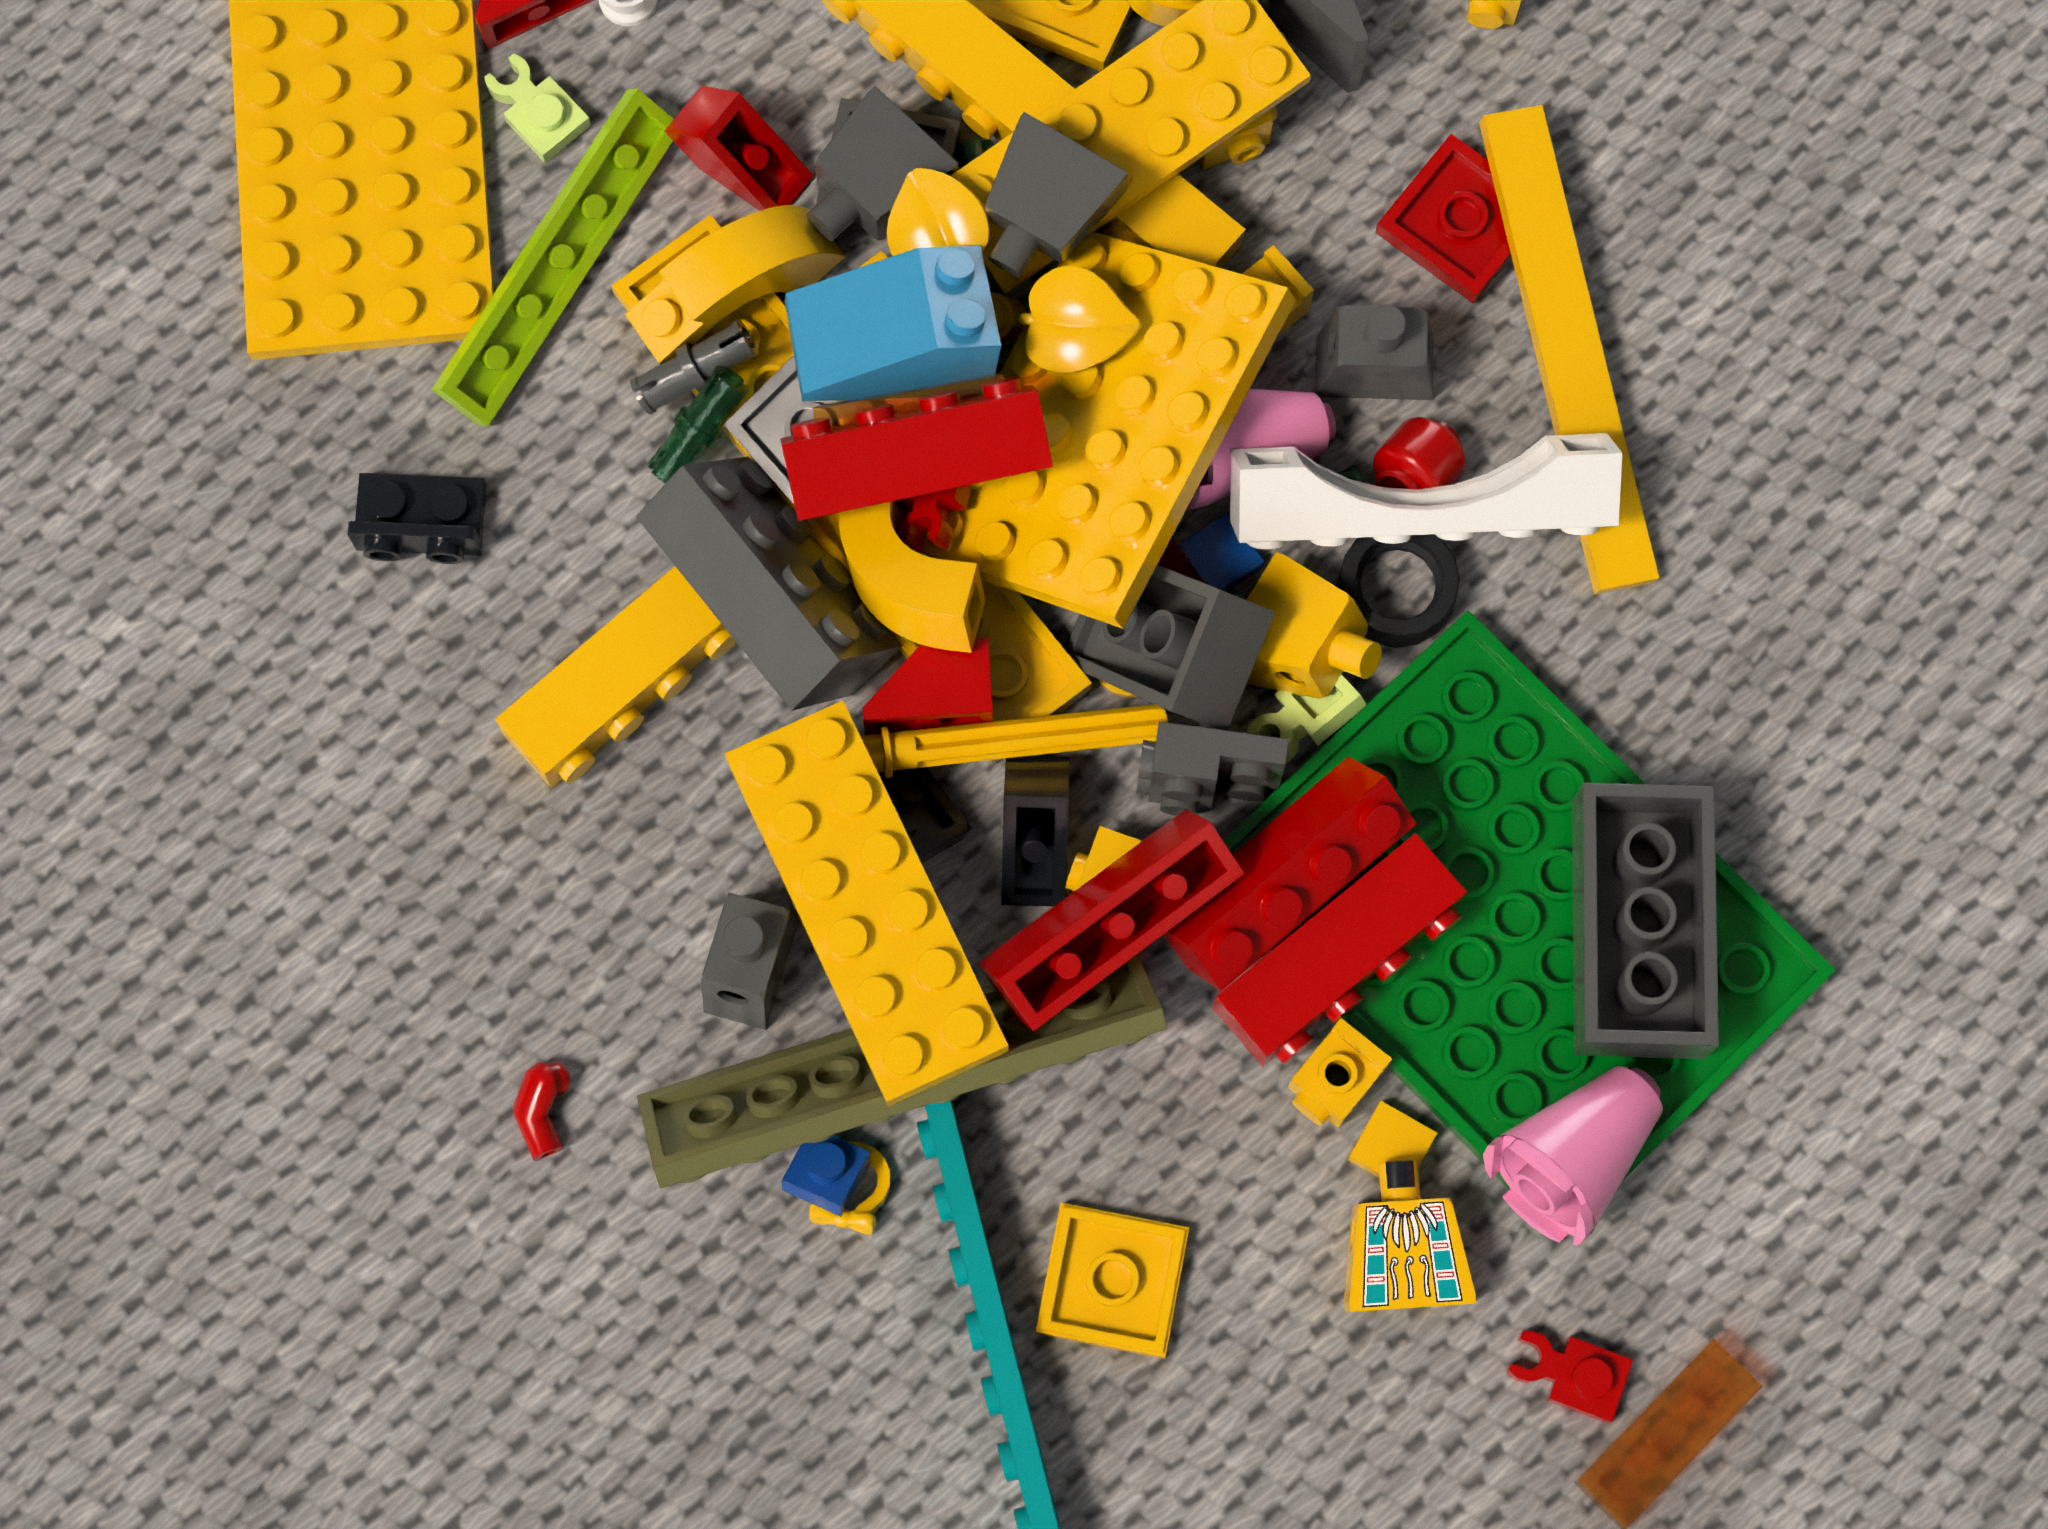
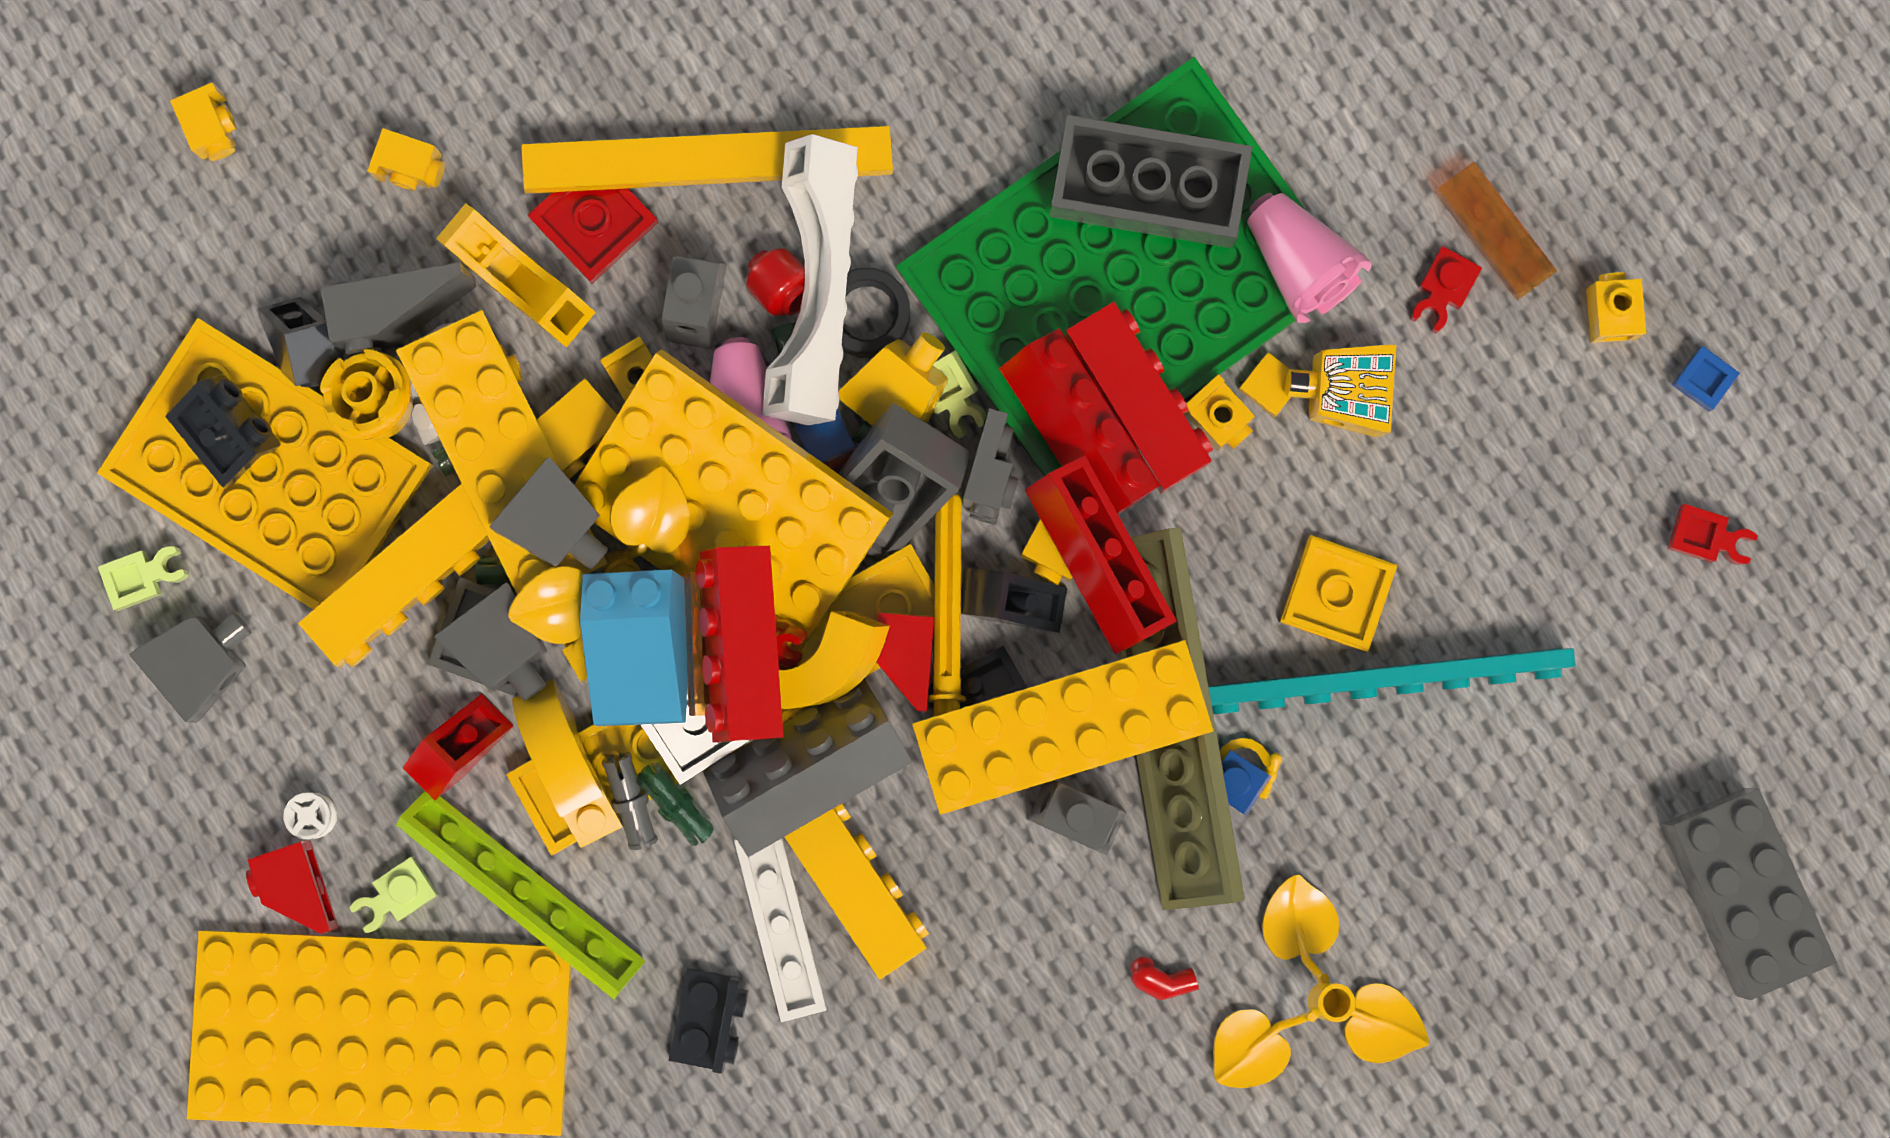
camera: 80 degrees left, 10 degrees up
(511, 1421) = (1381, 1019): none -> yellow plant
(547, 593) = (782, 931): none -> white plate
(1370, 127) = (515, 275): none -> yellow arch

